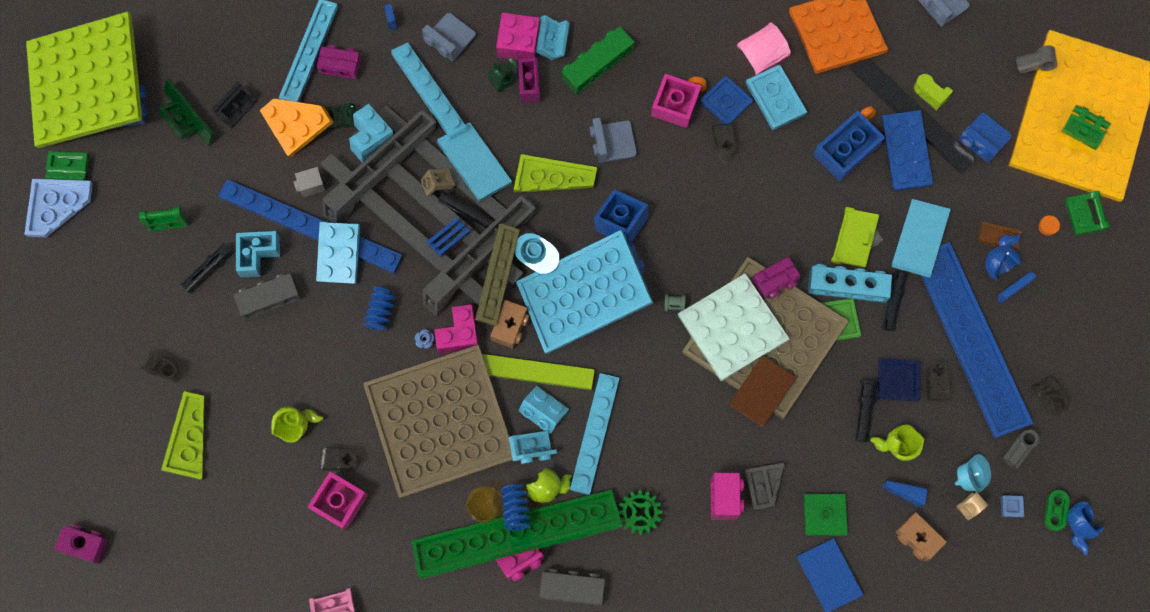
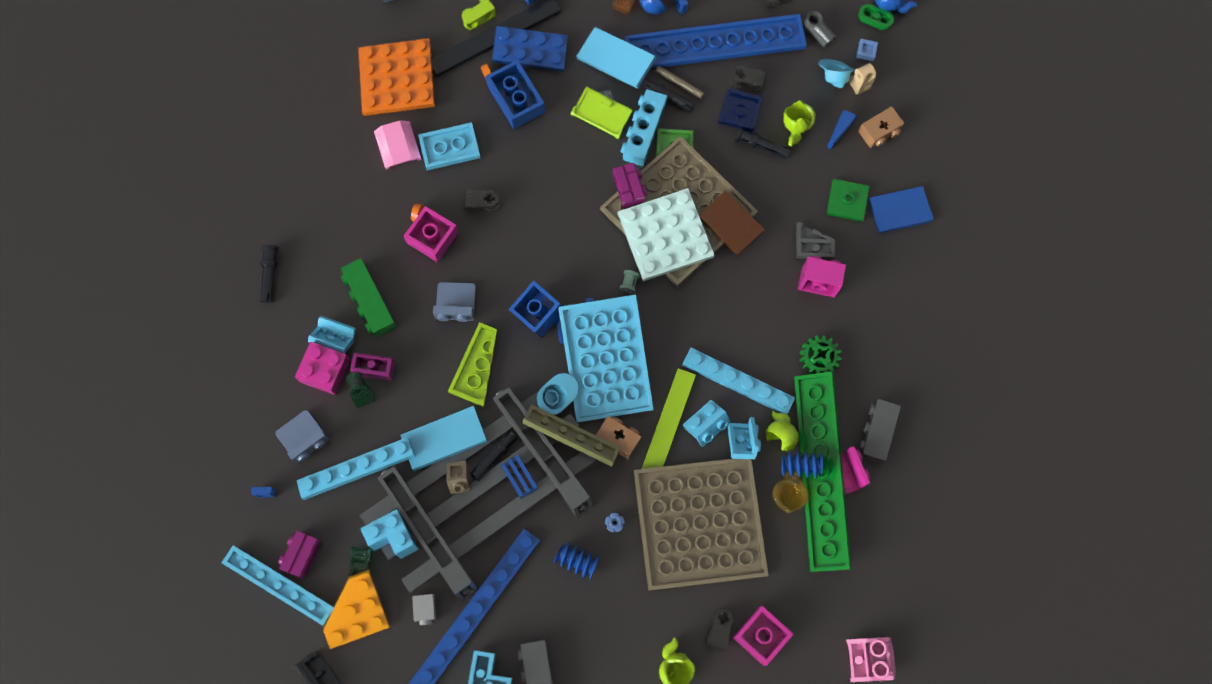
camera: 80 degrees left, 0 degrees up
(338, 252) = (508, 591): medium azure plate -> none
(460, 336) = (616, 481): dark pink brick -> none
(726, 101) = (440, 191): blue tile -> none
(914, 311) = (690, 88): none -> dark tan bar

